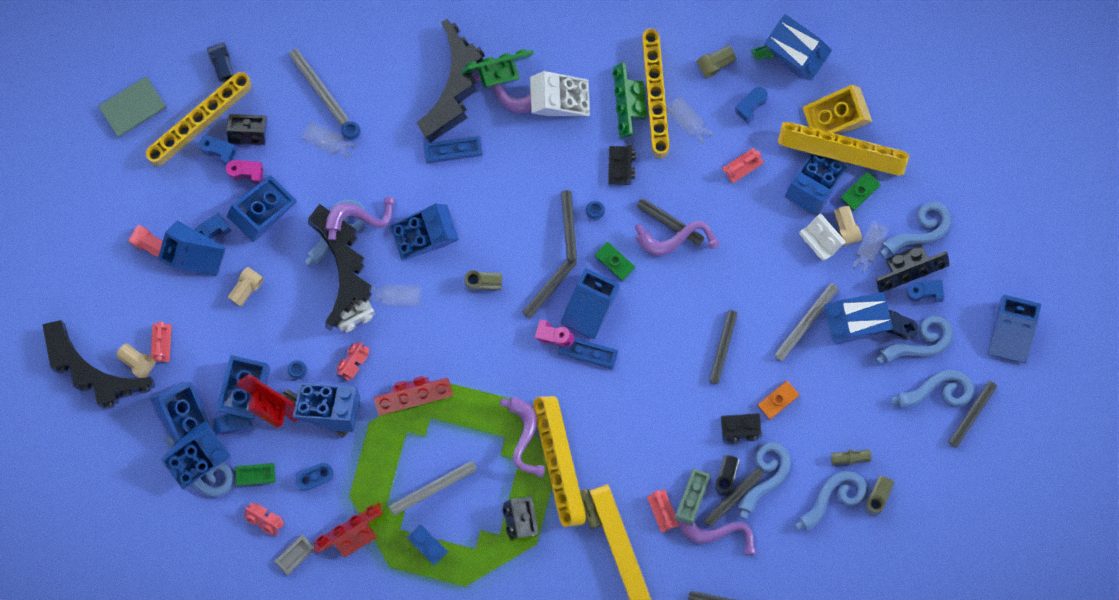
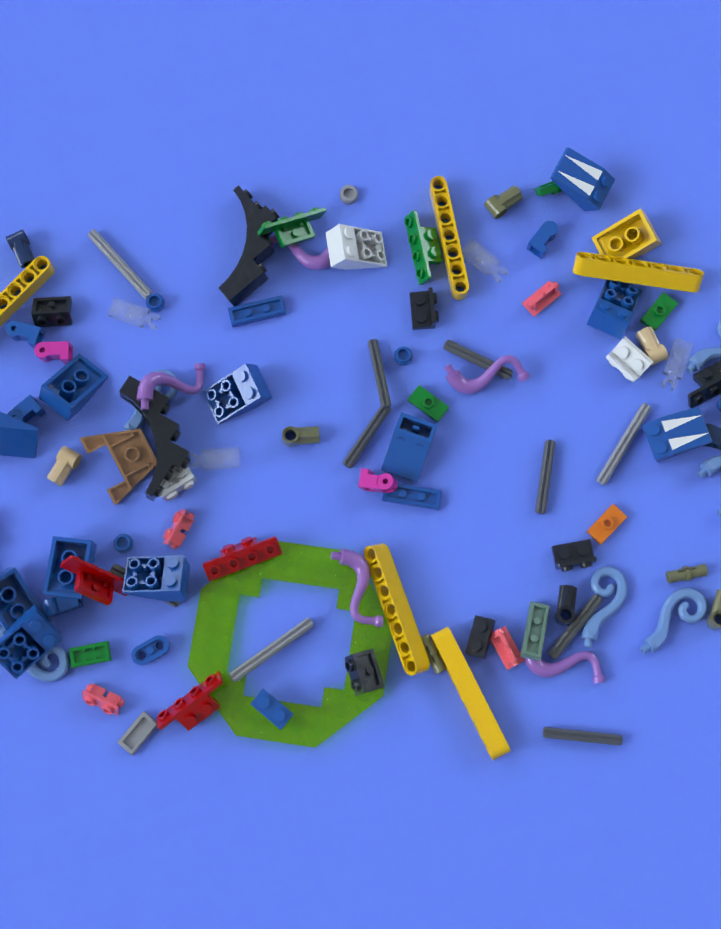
camera: 10 degrees left, 0 degrees up
(312, 281) = (130, 454): none -> medium nougat wing
(558, 37) = (348, 194): none -> light grey tile
(638, 497) = (480, 637): none -> black plate

